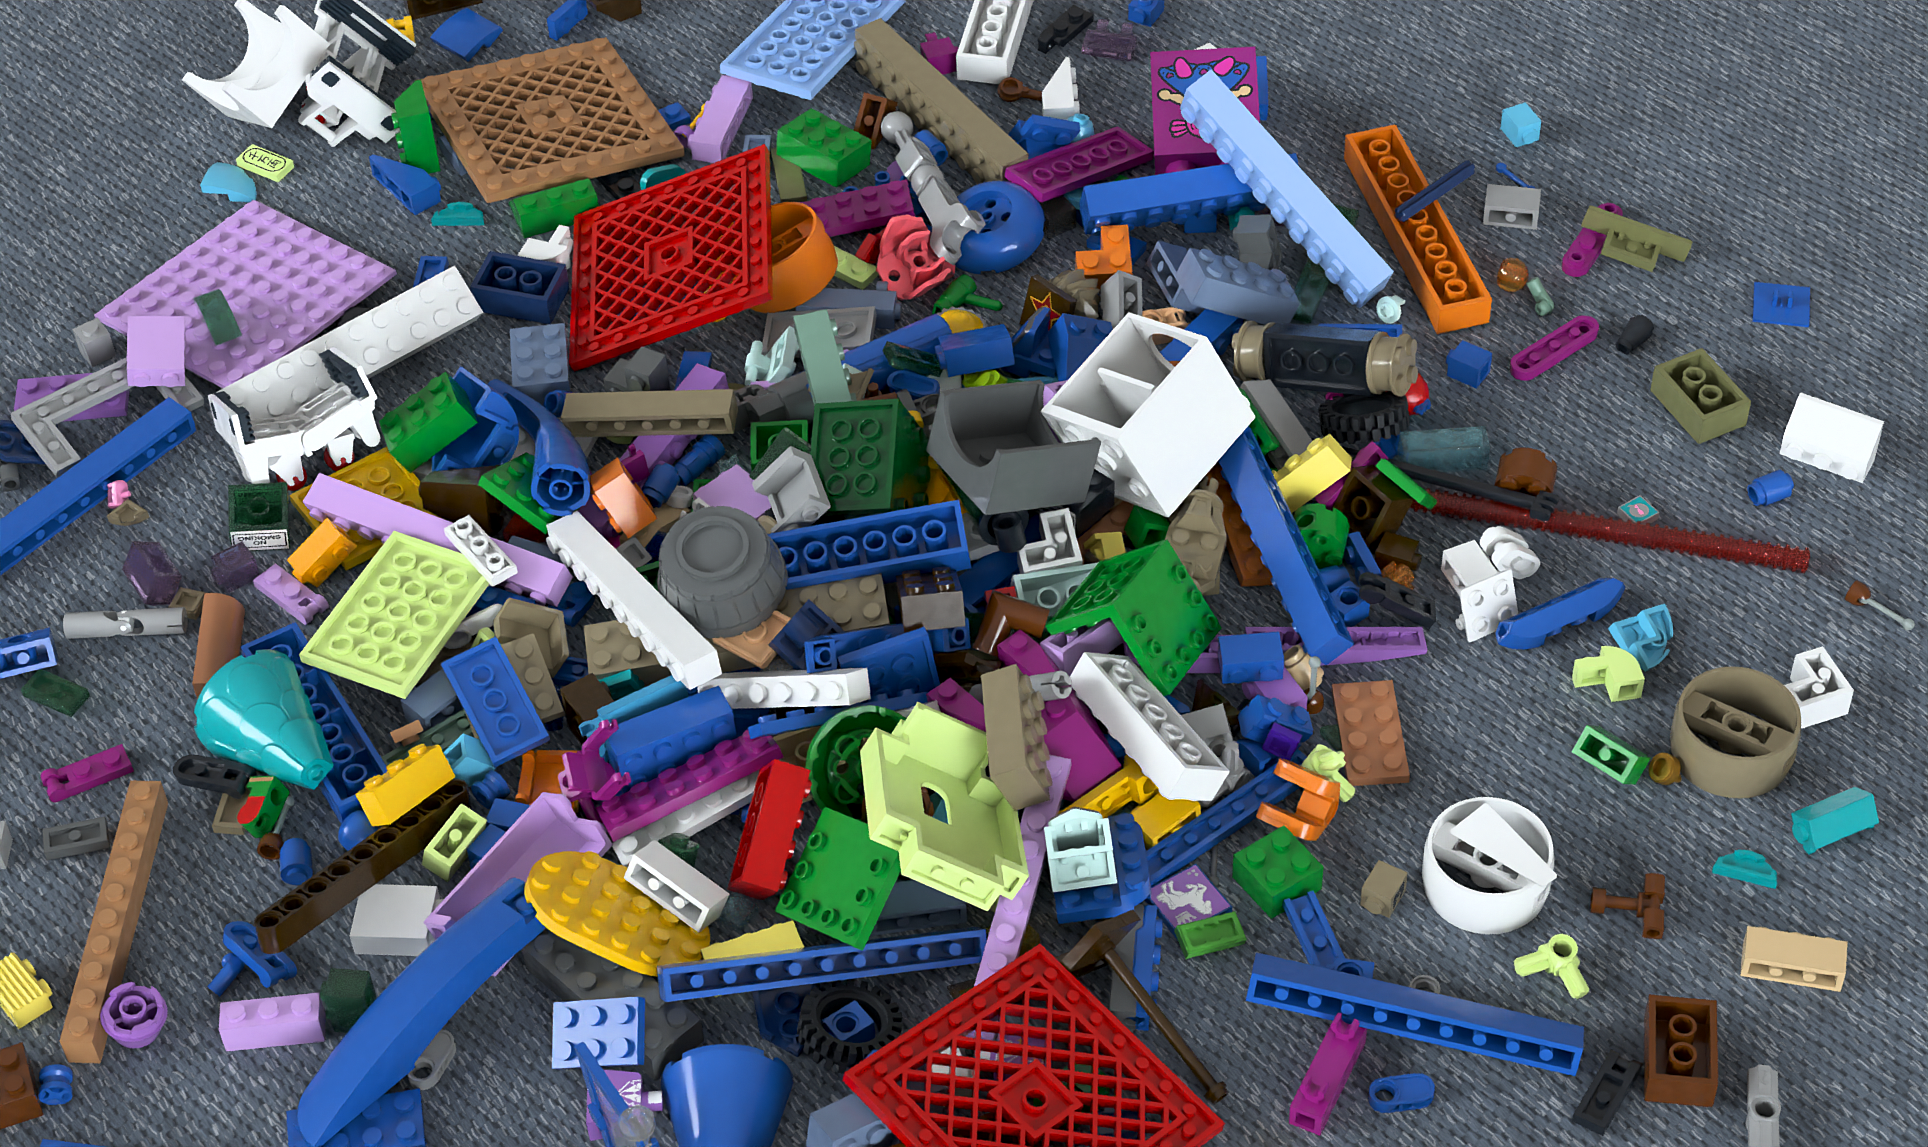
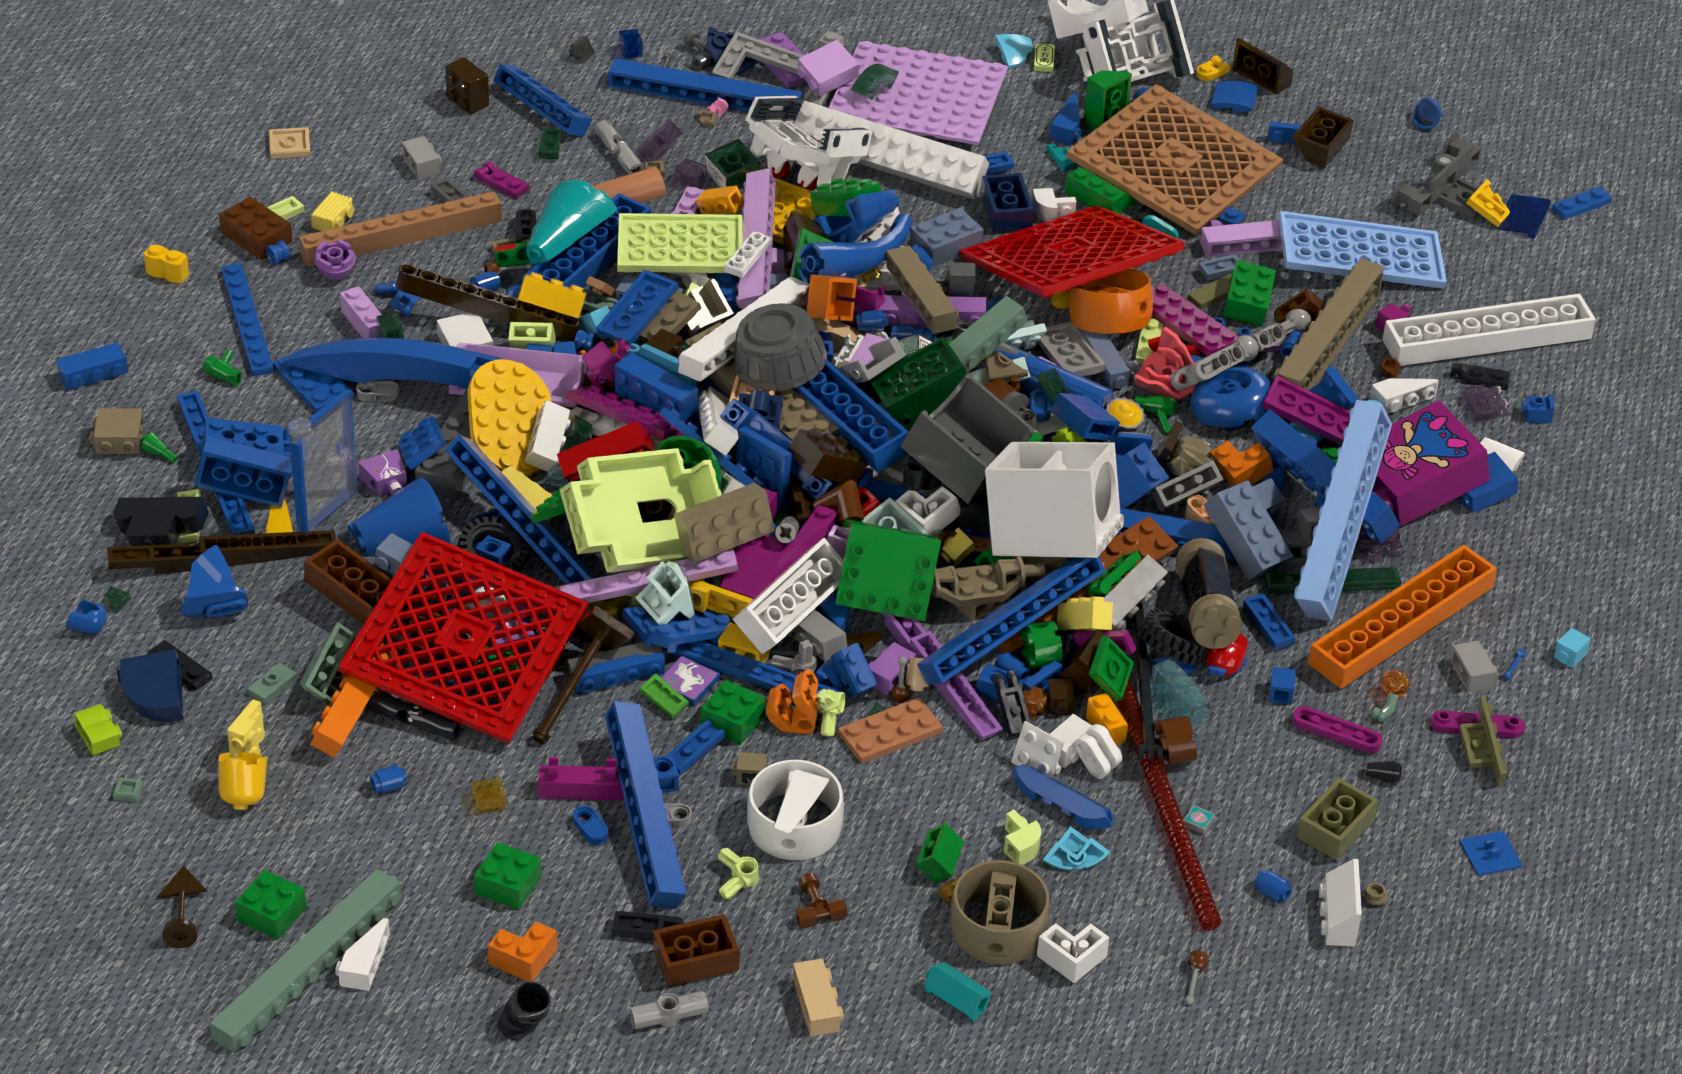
camera: 60 degrees right, 5 degrees down
(1250, 657) = (896, 635): blue brick -> none
(1281, 741) = (836, 675): dark purple tile -> none
(1389, 308) = (1311, 629): light aqua plate -> none
(1434, 191) = (1434, 605): dark blue axle -> none
(1454, 527) = (1104, 712): none -> light orange brick
(1746, 866) = (891, 958): teal tile -> none

